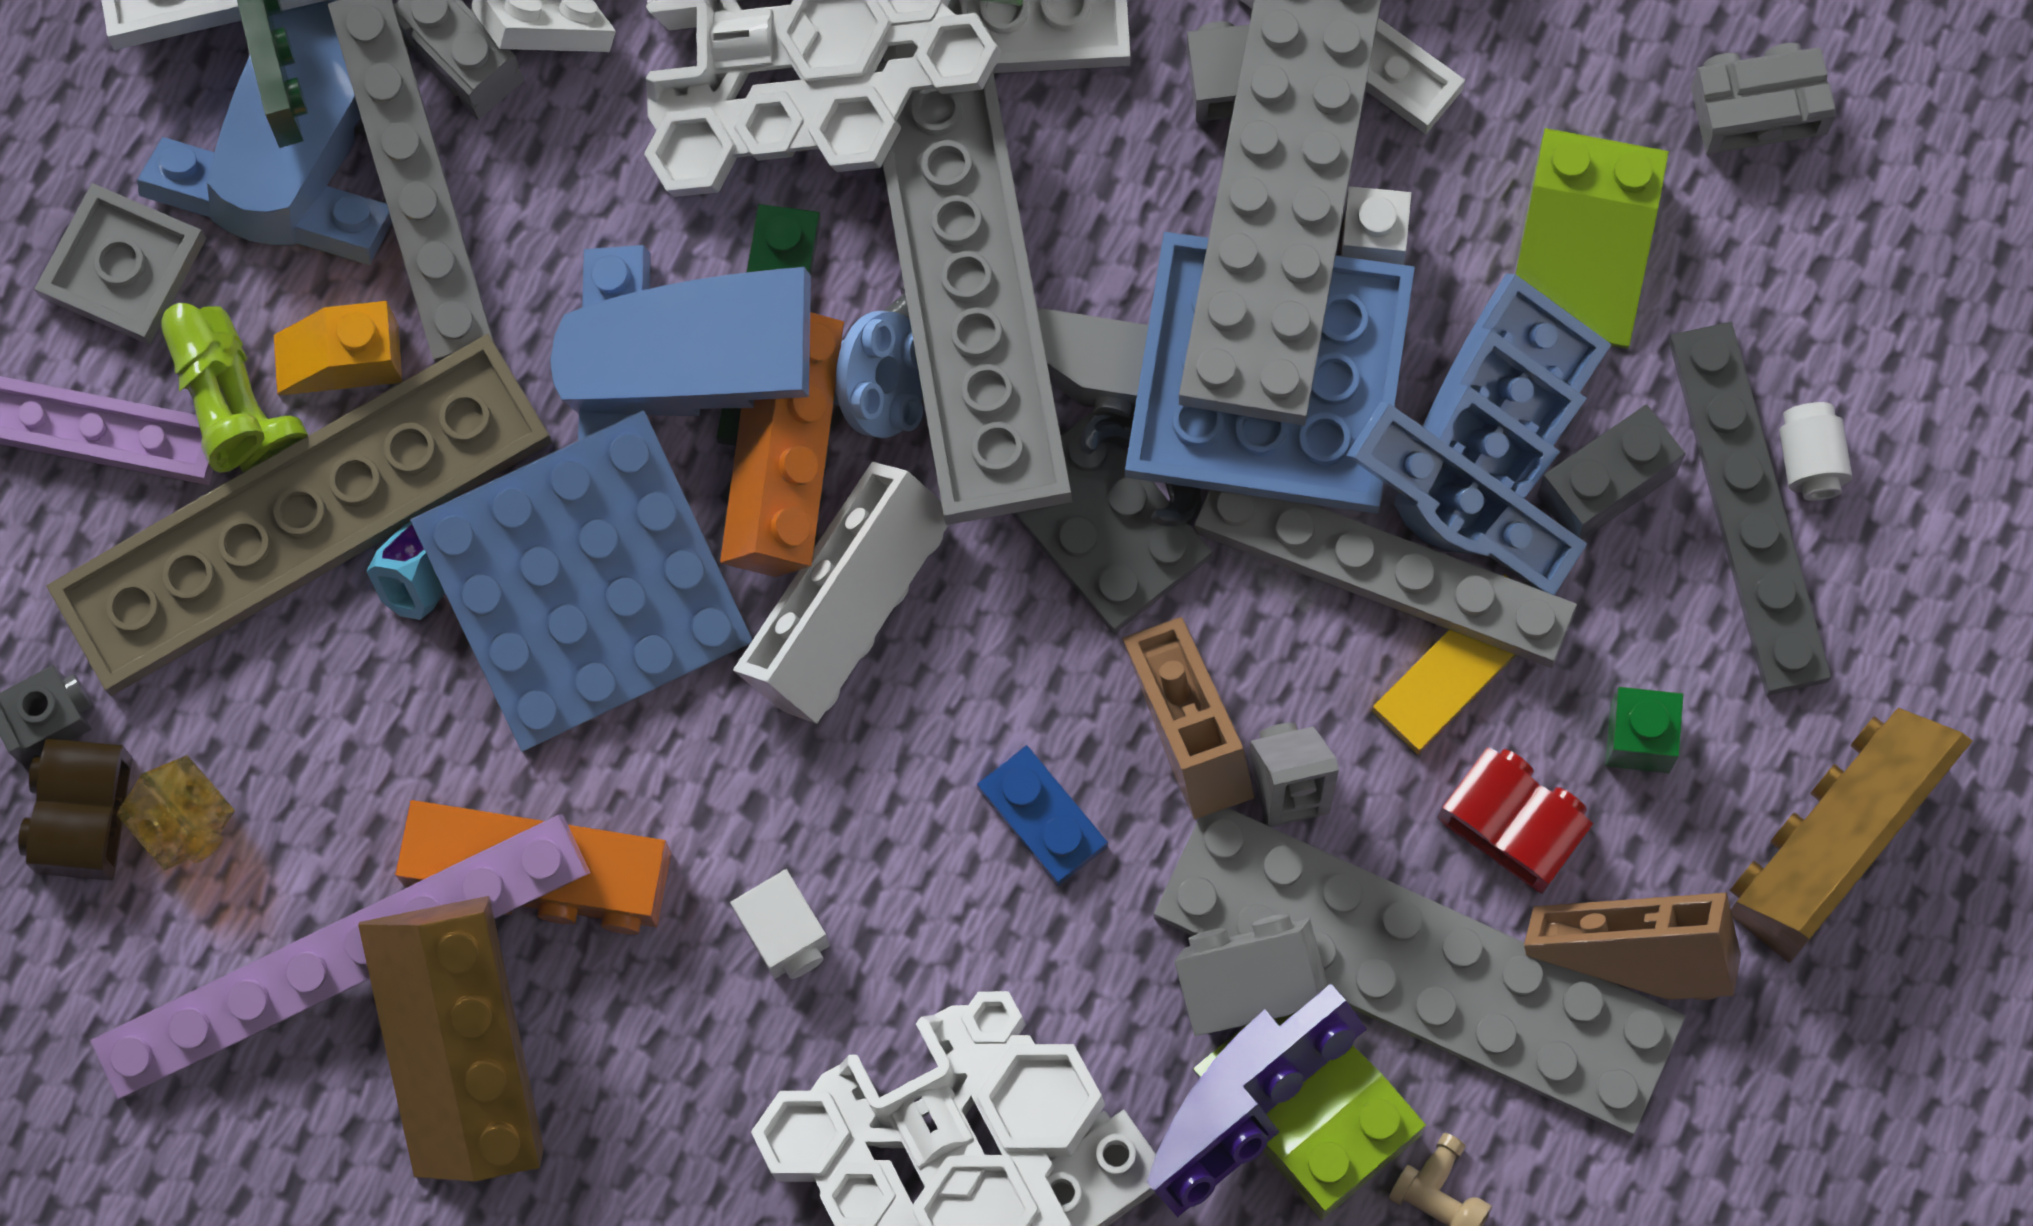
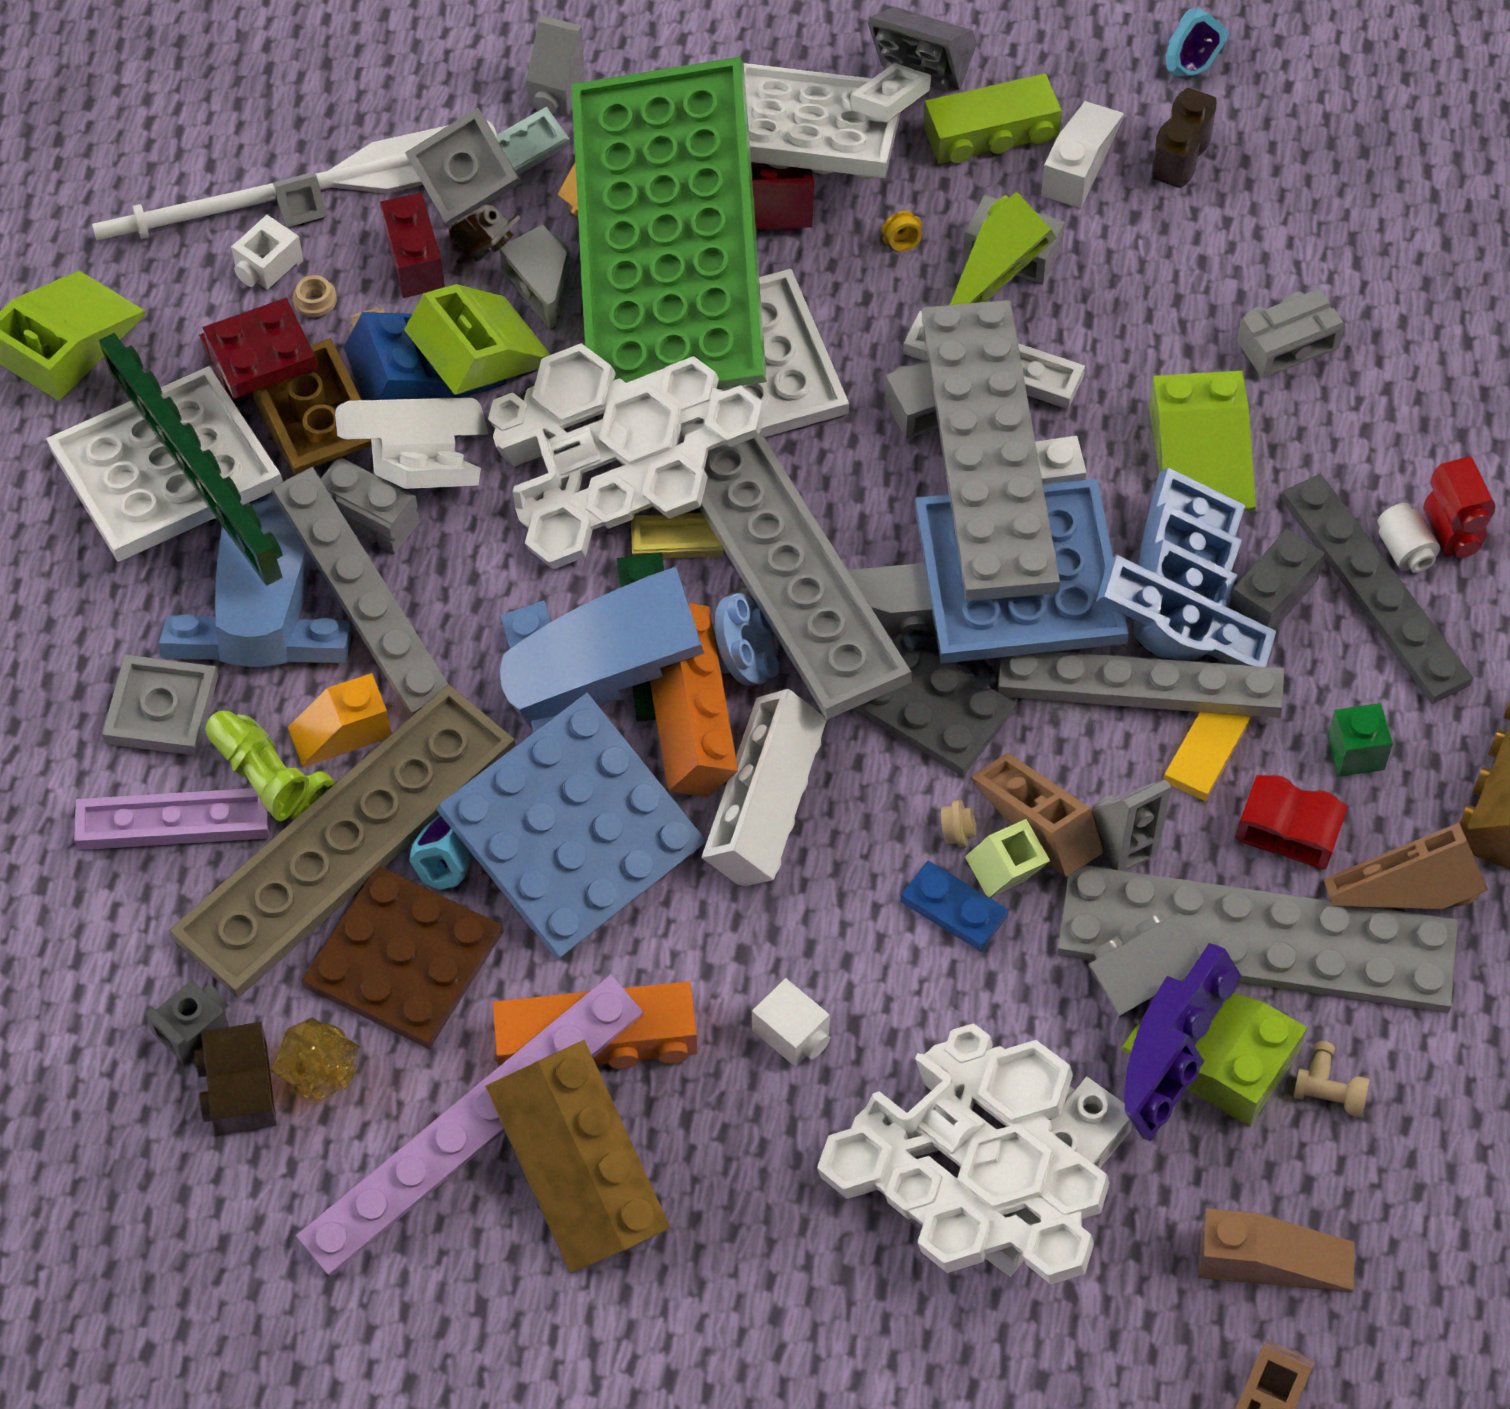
camera: 20 degrees left, 15 degrees down
(328, 695) = (402, 956): none -> reddish brown plate
(844, 196) = (677, 537): none -> light yellow tile
(1080, 705) = (958, 823): none -> tan plate
(1123, 777) = (1007, 858): none -> yellowish green brick
(1894, 432) = (1459, 507): none -> red brick

